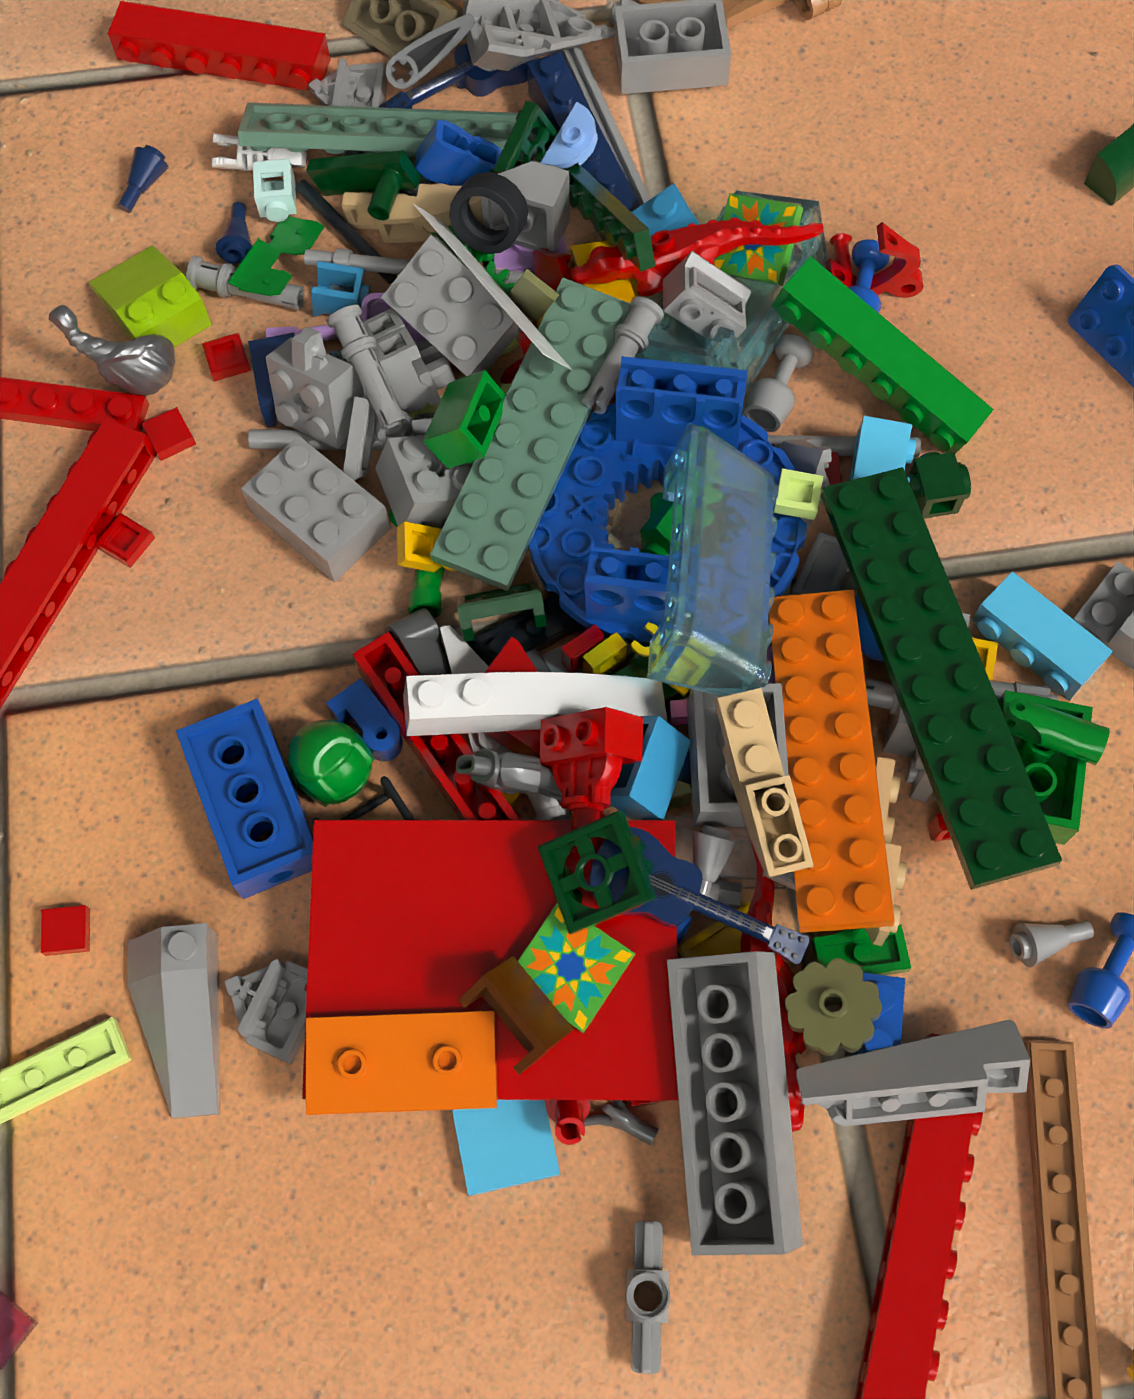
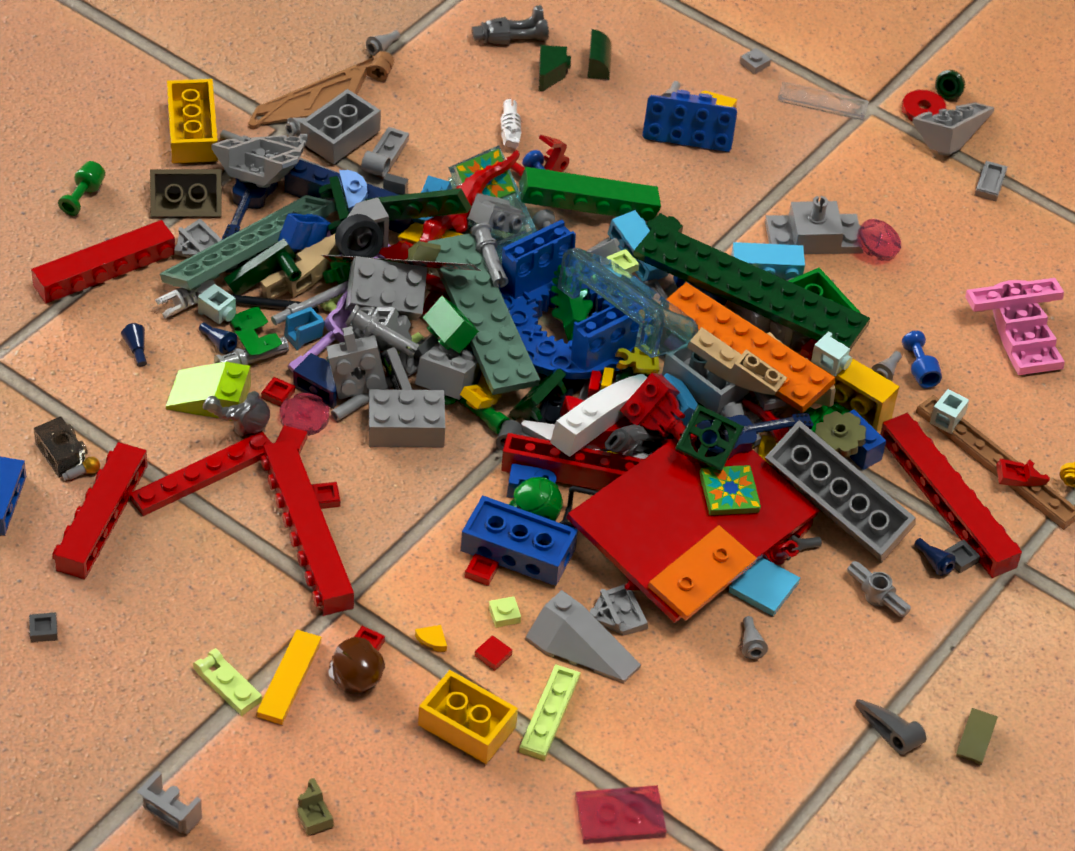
camera: 50 degrees left, 20 degrees down
(21, 844) = (432, 637): none -> yellow tile
(143, 882) = (504, 611): none -> yellowish green plate
(180, 797) = (481, 569): none -> red tile
(222, 410) = (305, 413): none -> clear pink tile
(387, 1218) = (753, 643): none -> light grey cone
(428, 50) = (227, 200): piece -> none
(522, 1009) = (731, 515): reddish brown panel -> none
(654, 172) = (395, 184): none -> dark grey tile
(693, 120) = (385, 152): none -> light grey plate
(790, 1325) = (940, 560): none -> dark blue cone
(836, 1347) = (964, 554): none -> dark grey tile
(899, 185) = (510, 124): none -> white hinge
(920, 1077) = (897, 434): light grey wedge -> none
(933, 877) = (831, 355): none -> light aqua brick
(946, 951) = (866, 393): none -> yellow brick
(1031, 42) = (503, 30): none -> dark grey piece
(1043, 135) = (552, 65): none -> dark green slope
(1058, 731) = (821, 279): green piece -> none
(1064, 1294) = (1019, 474): none -> red slope
(1075, 1086) = (949, 411): none -> light aqua brick

